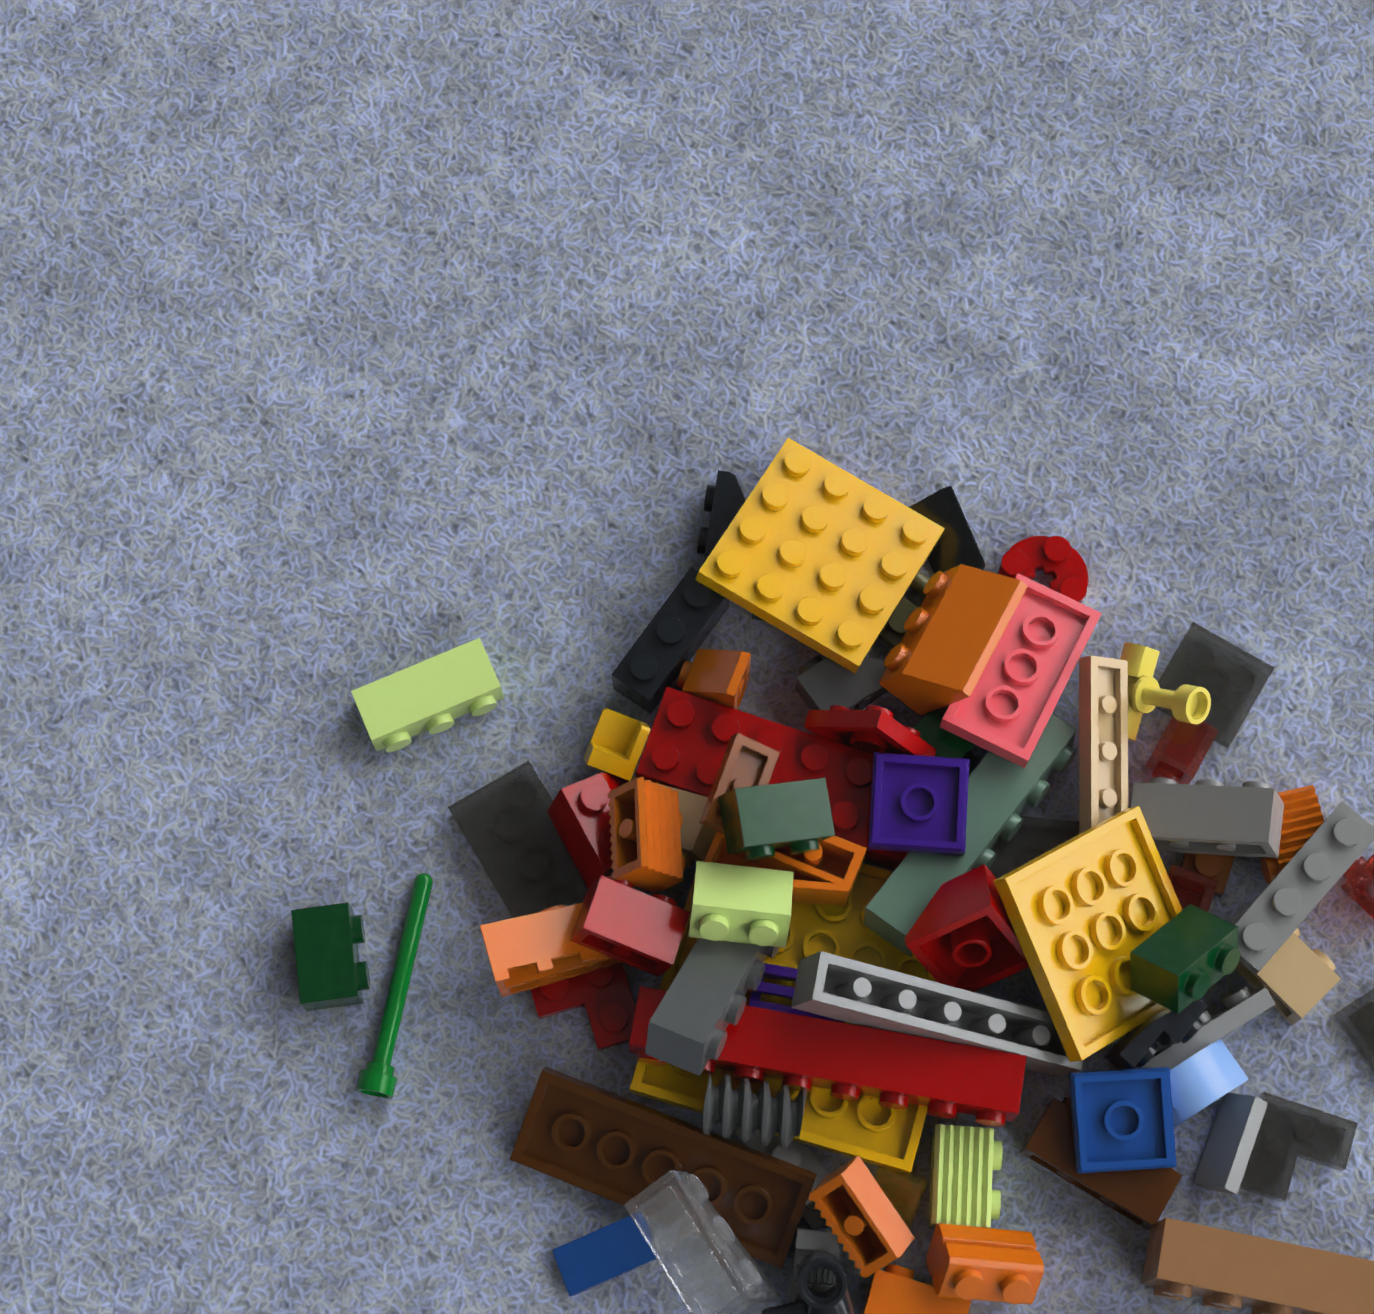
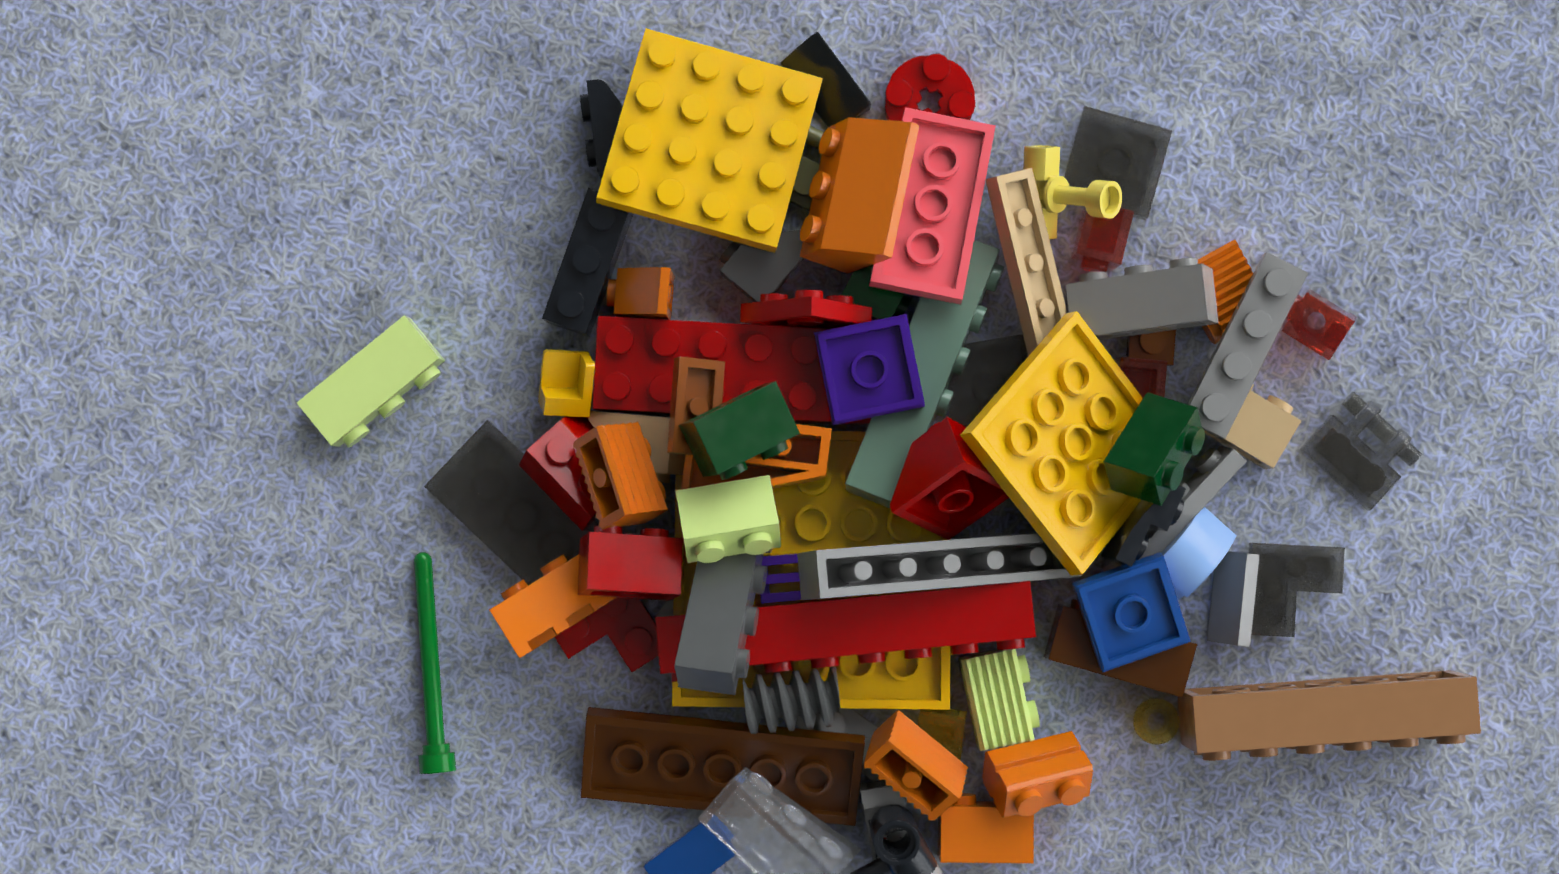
camera: 15 degrees left, 15 degrees up
(329, 956) = (356, 658): dark green brick -> none
(1136, 1247) = (1166, 731): none -> clear yellow plate

